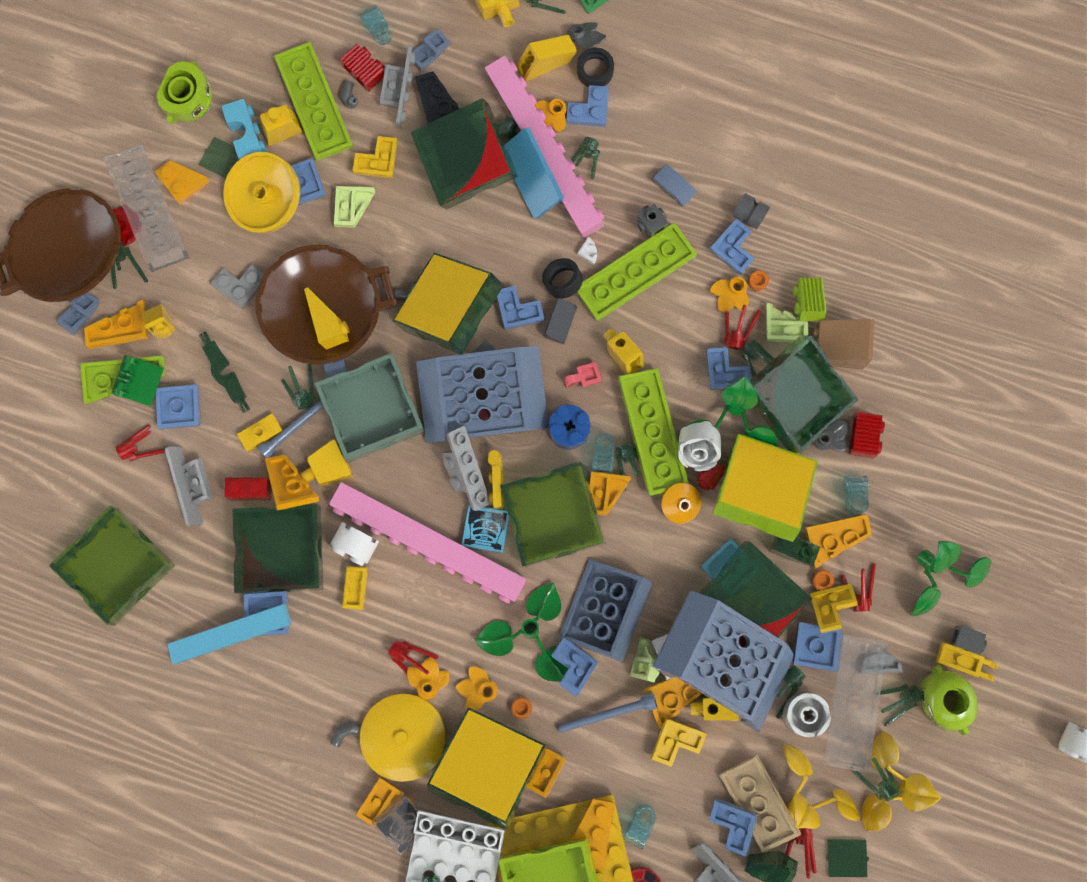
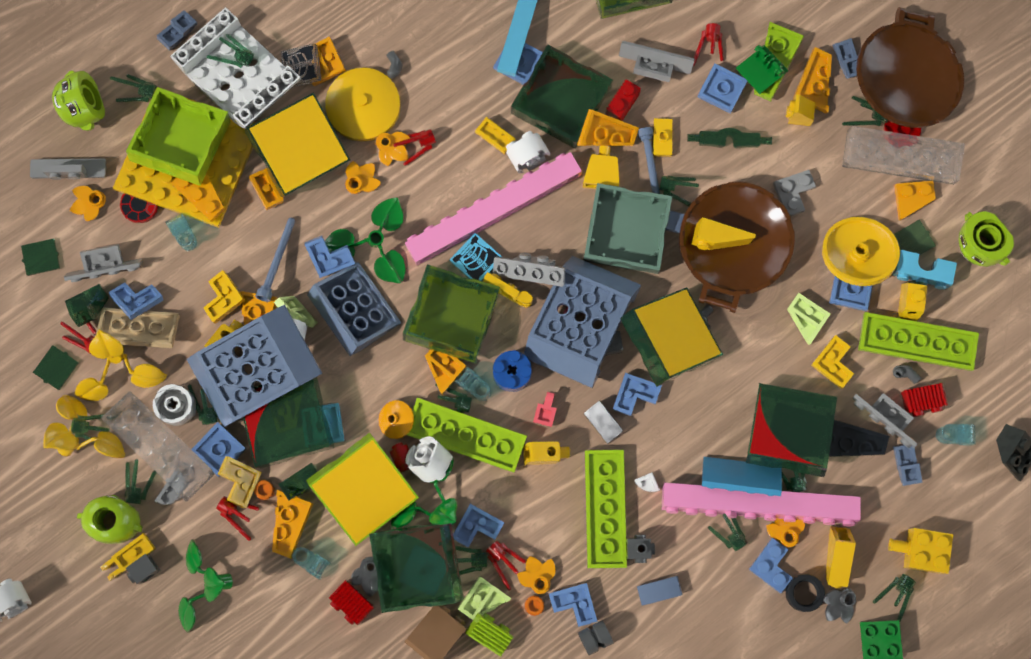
camera: 120 degrees right, 0 degrees up
(493, 527) = (476, 271): clear plant -> none
(521, 708) = (325, 201): orange tile -> none
(569, 288) = (649, 440): black tyre -> none

